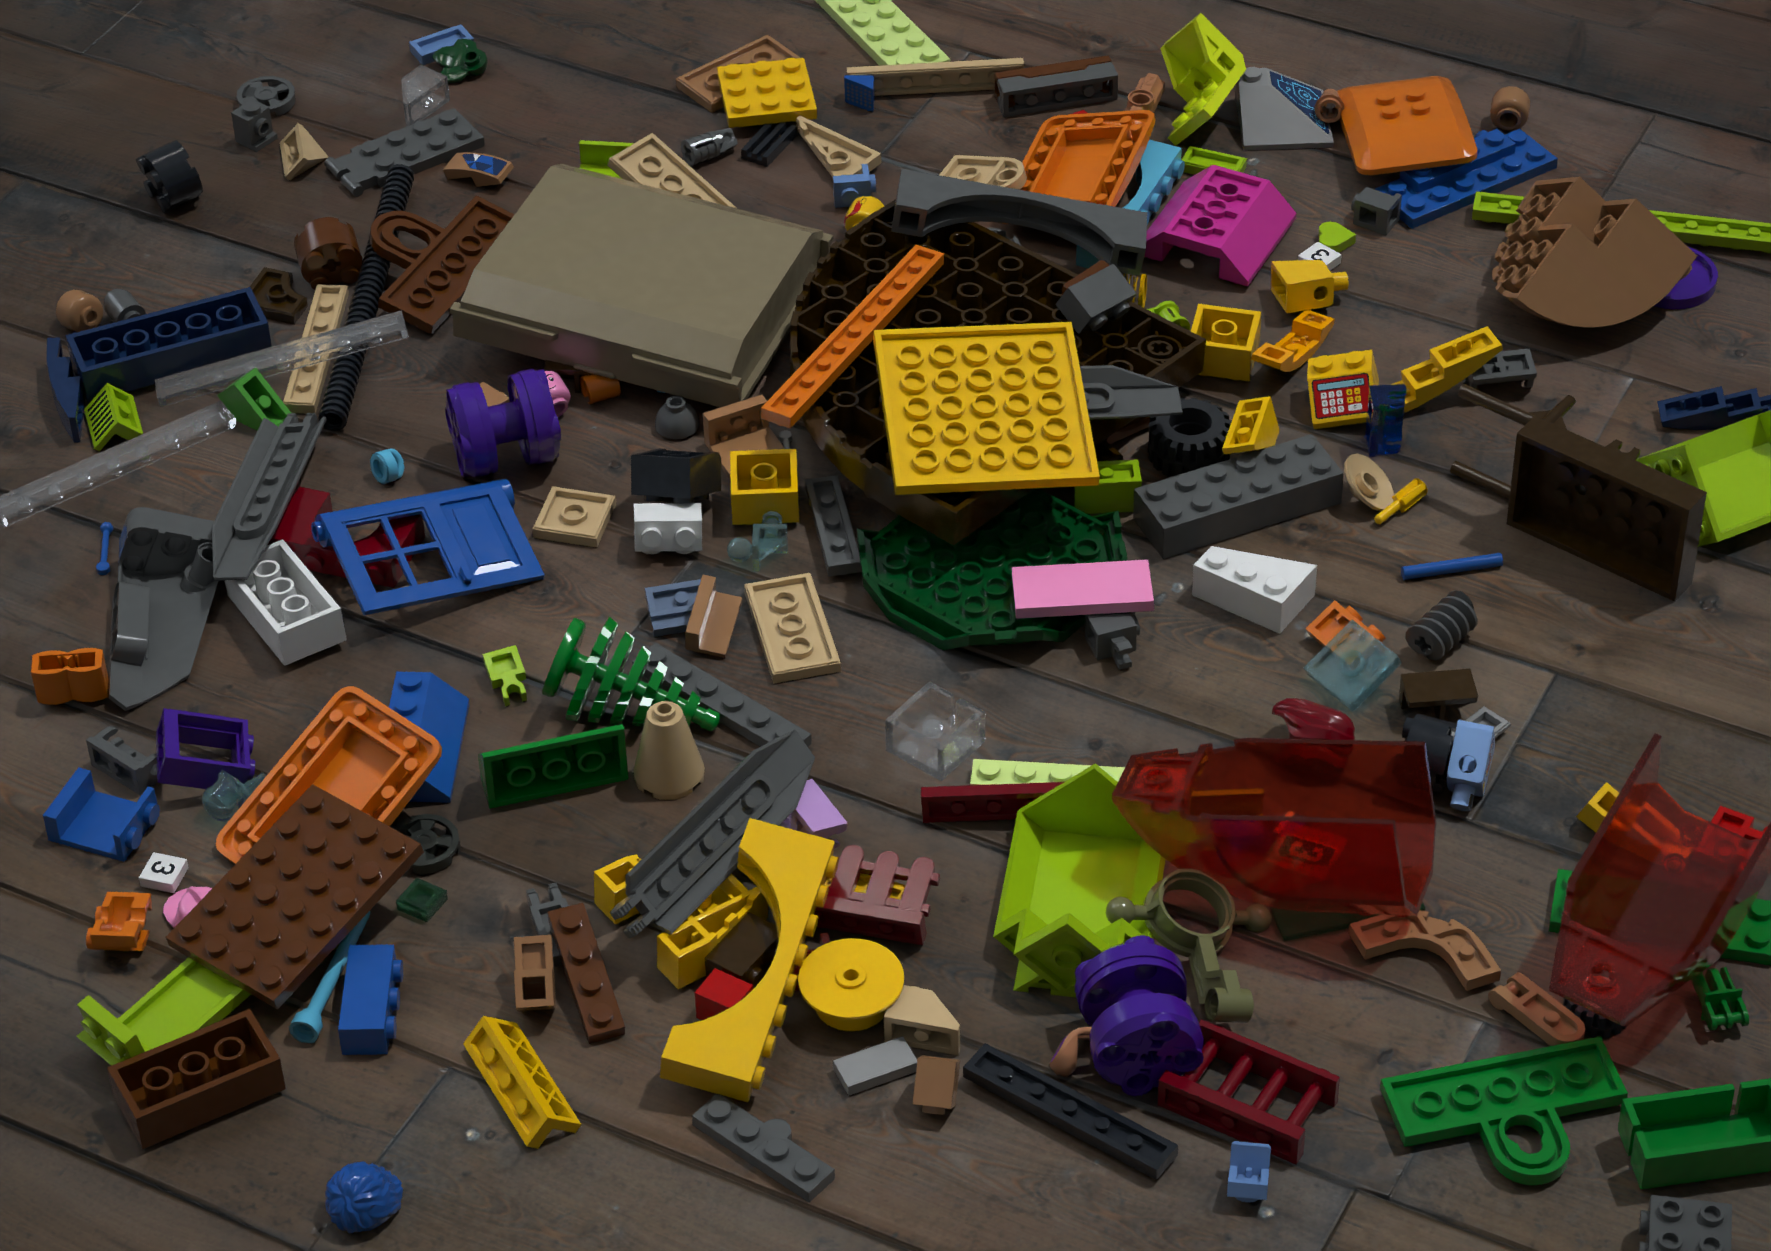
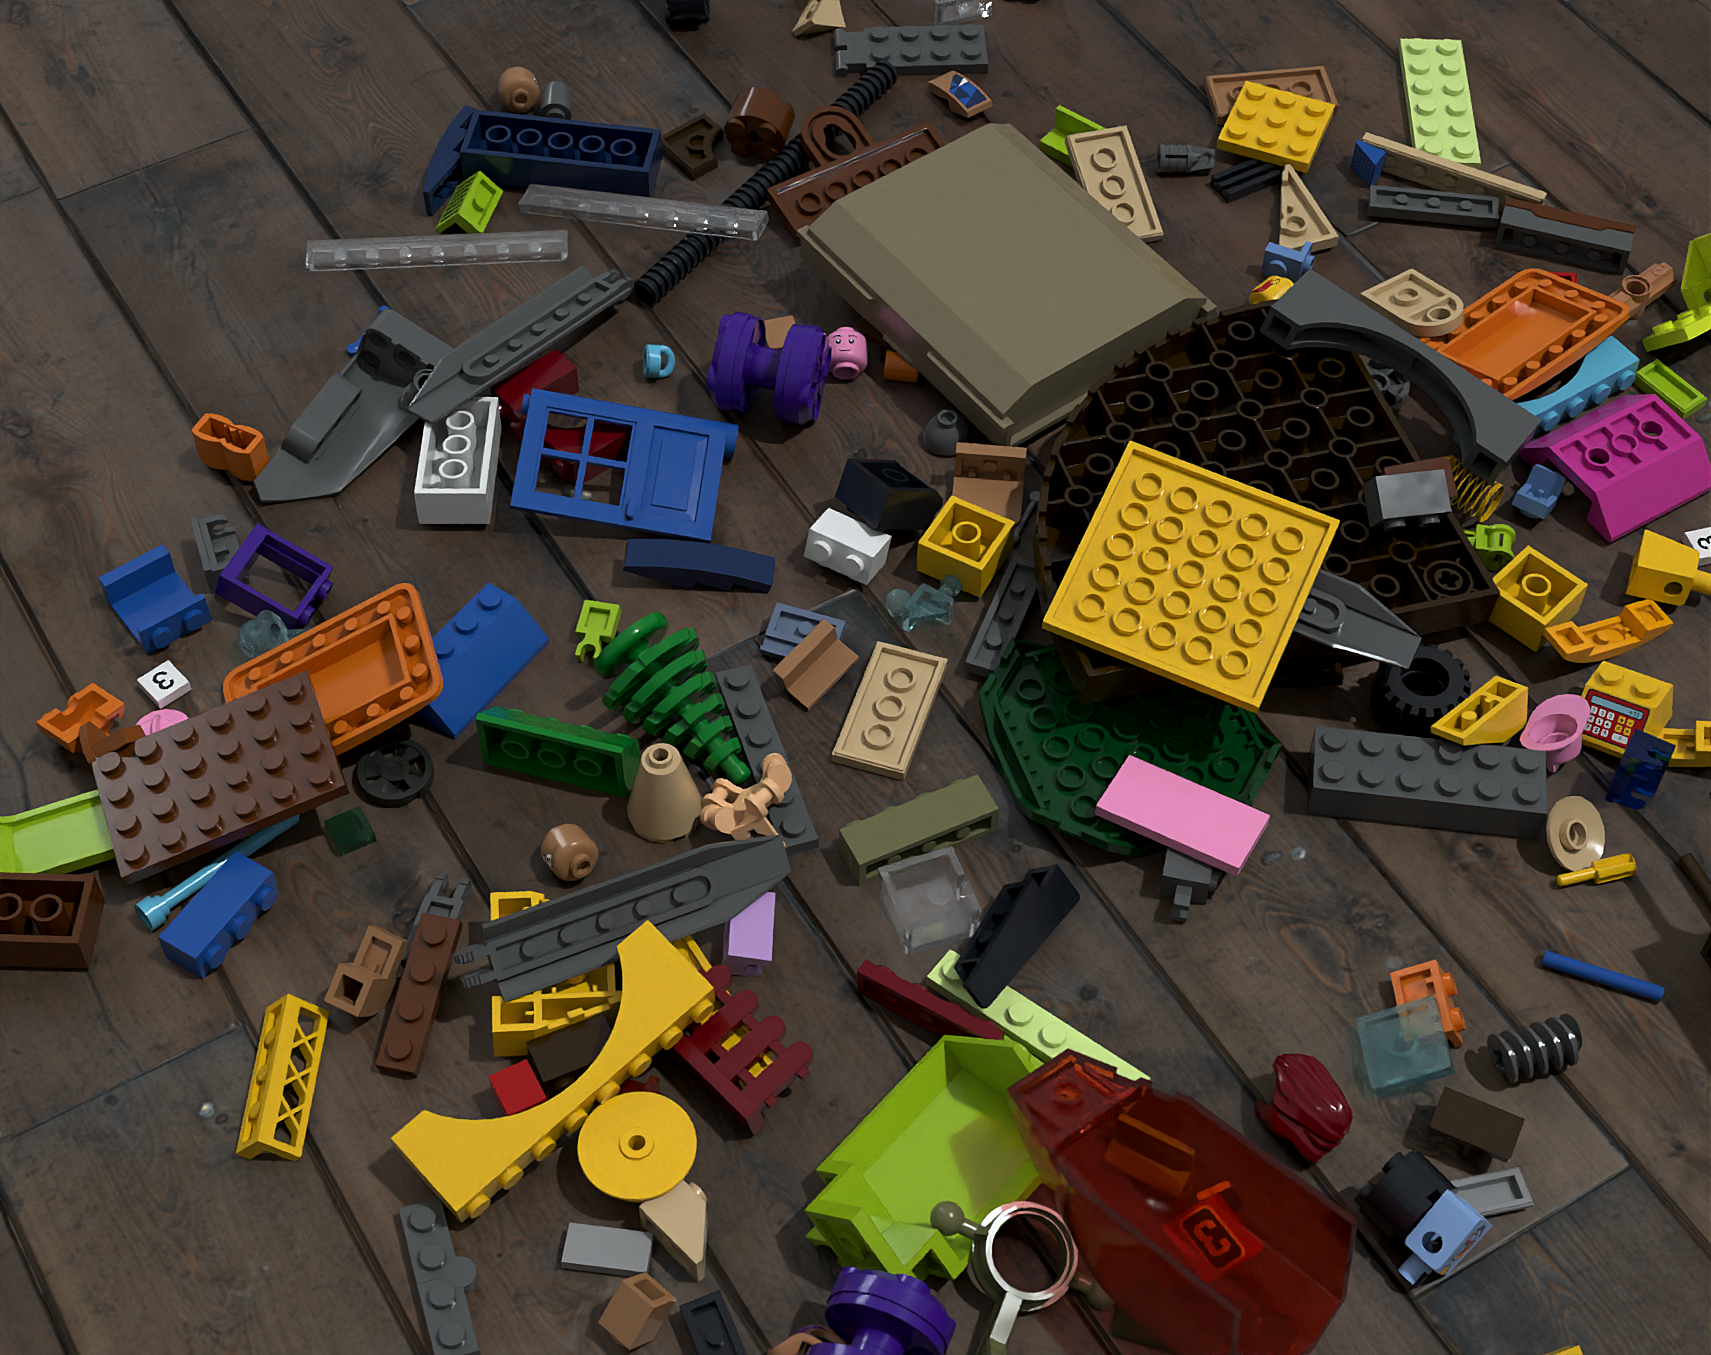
camera: 30 degrees right, 10 degrees up
(172, 923) = (97, 743): none -> dark orange tile
(252, 400) = (591, 244): bright green slope -> none
(324, 315) = (711, 190): tan tile -> none
(362, 1197) = (52, 1127): blue hair -> none
(545, 593) = (705, 563): none -> dark blue slope
(574, 516) = (782, 492): tan tile -> none
(622, 828) = (569, 852): none -> medium nougat head
(744, 731) = (741, 810): none -> light nougat piece
(851, 337) = (1142, 425): orange plate -> none
(886, 686) = (918, 827): none -> olive brick
(936, 104) = (1433, 206): none -> dark grey plate
(1013, 721) = (1014, 930): none -> black wedge
(1114, 489) = (1298, 704): lime panel -> none
(1173, 270) = (1540, 492): none -> medium blue bracket
(1254, 585) = (1370, 897): white wedge -> none
(1306, 415) = (1557, 729): none -> bright pink piece

